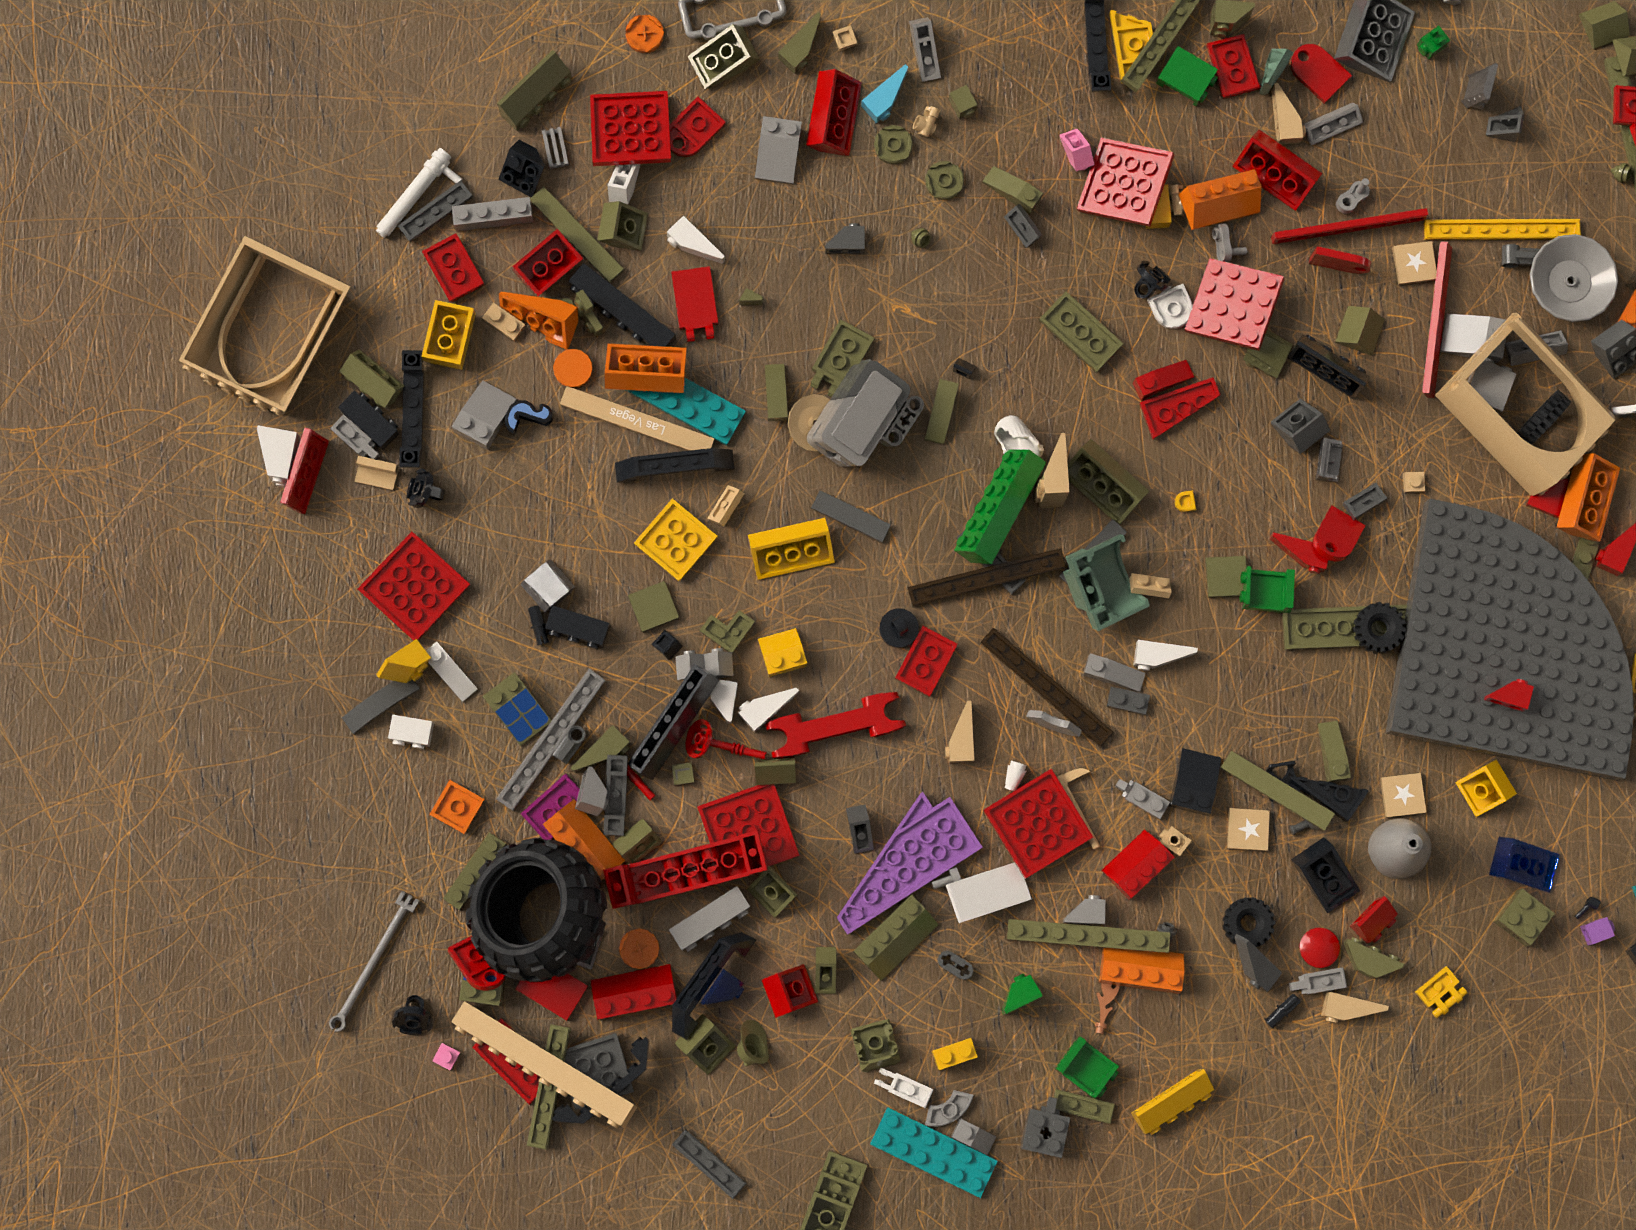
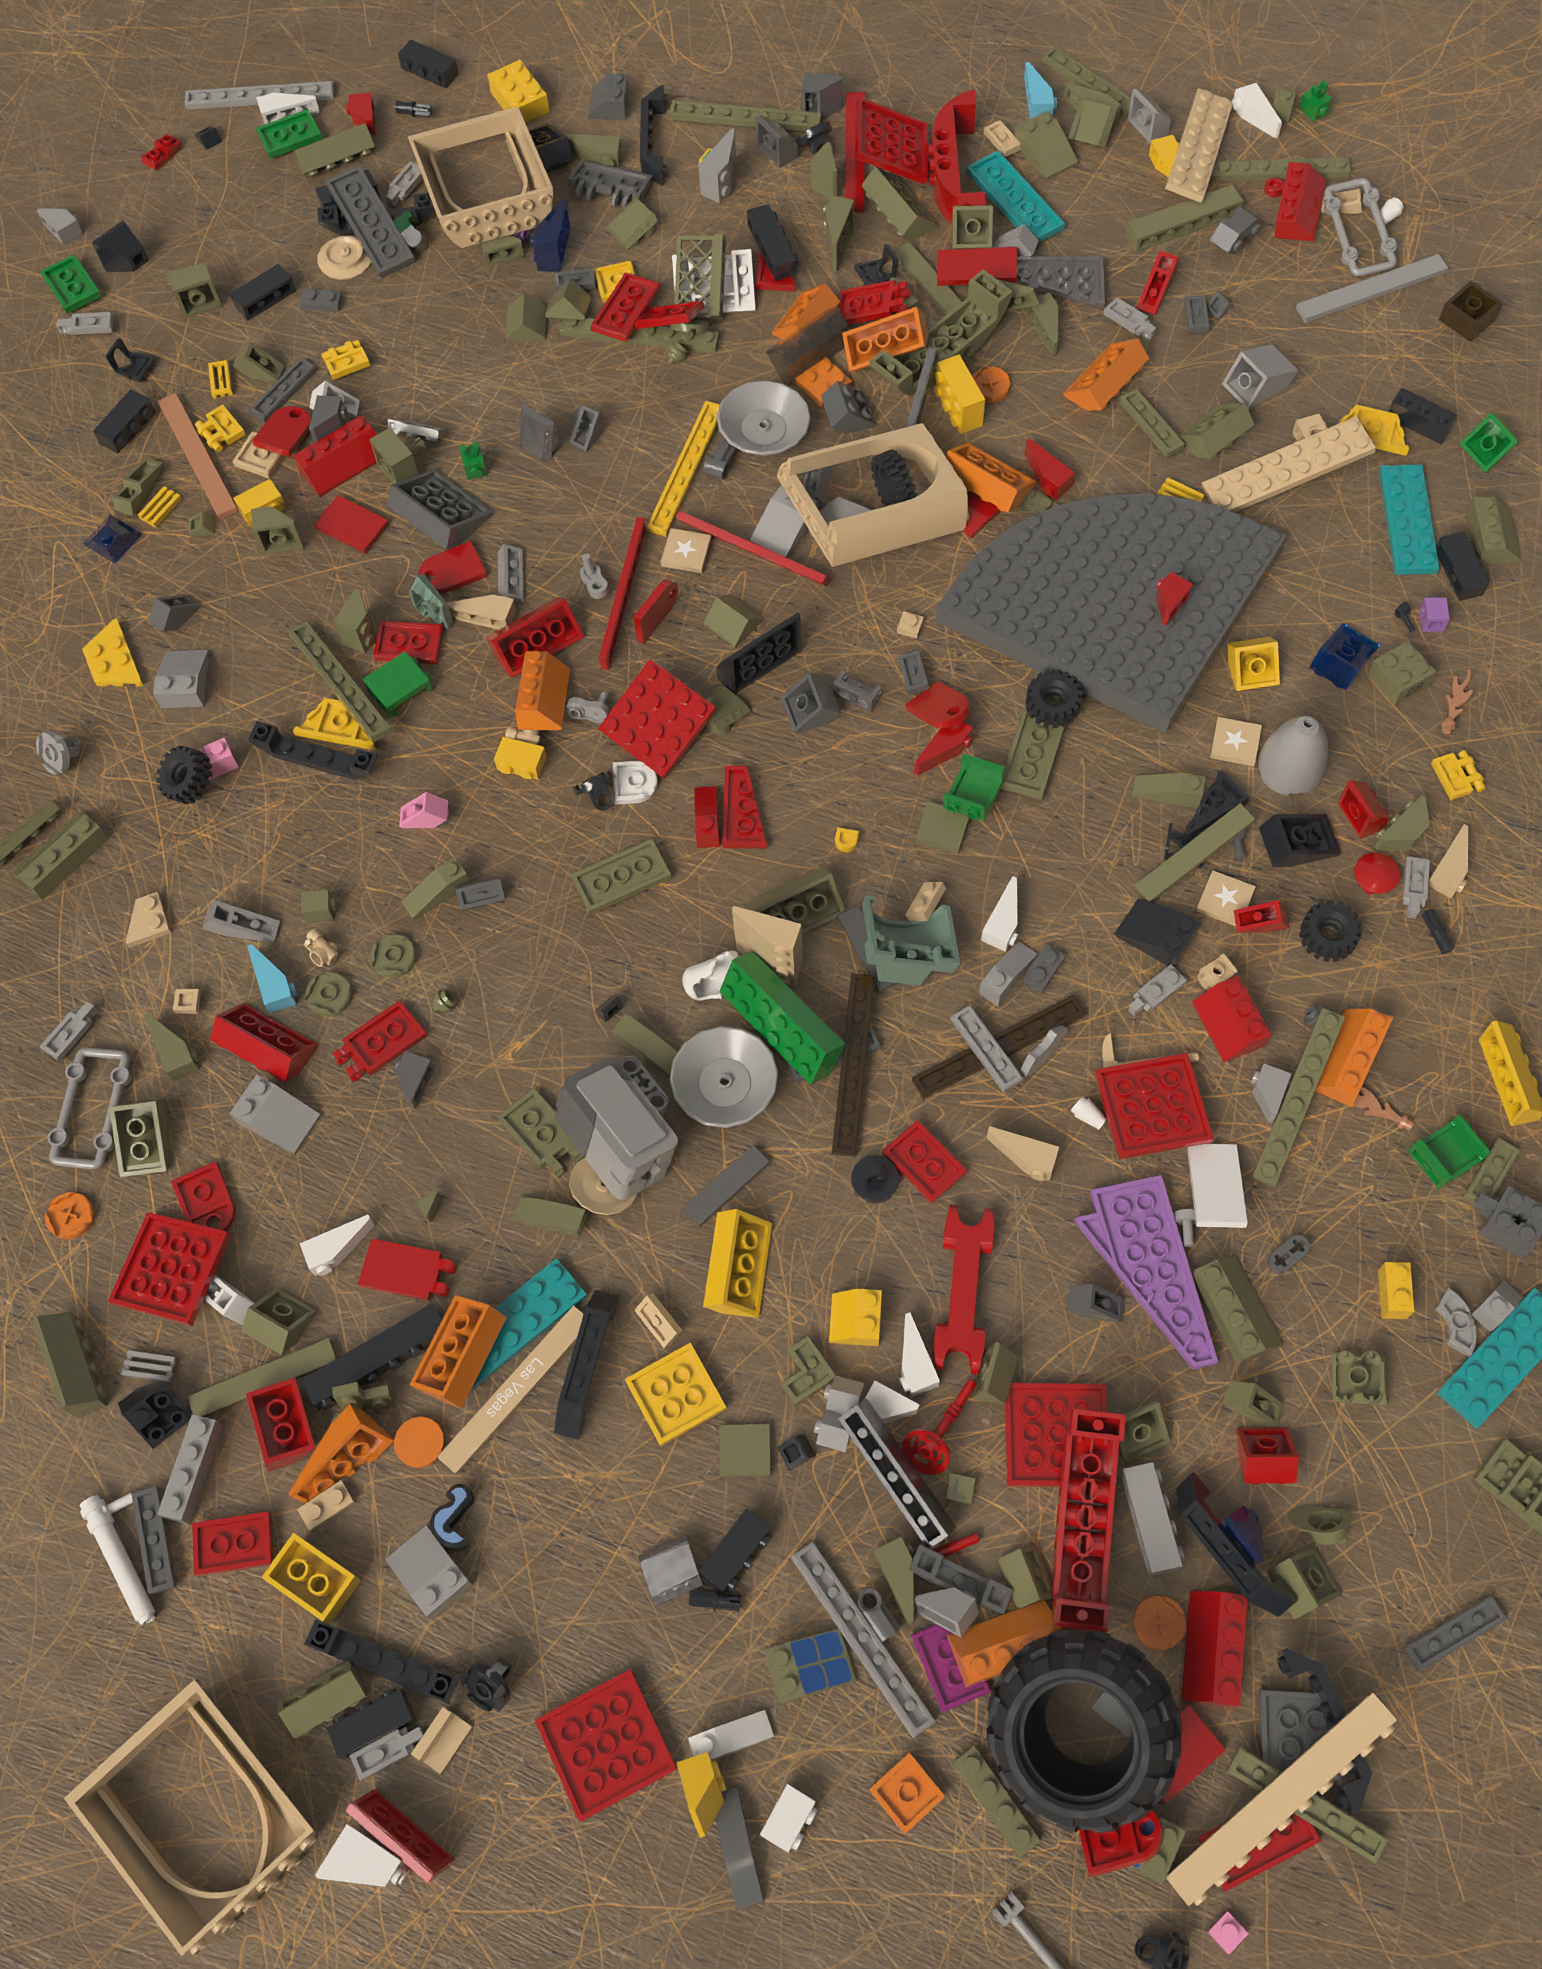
camera: 60 degrees left, 15 degrees down
(869, 202) = (379, 1041): none -> red tile
(906, 1088) = (1421, 1361): white hinge -> none
(940, 461) = (720, 1056): none -> light grey dish
(1021, 993) = (1347, 1192): green slope -> none
(1038, 677) = (986, 1048): none -> light grey tile
(1125, 182) = (481, 775): plate -> none
(1237, 863) = (1262, 918): none -> red slope
(1256, 966) = (1383, 935): dark grey slope -> none
(1519, 975) = (1458, 699): none -> nougat piece

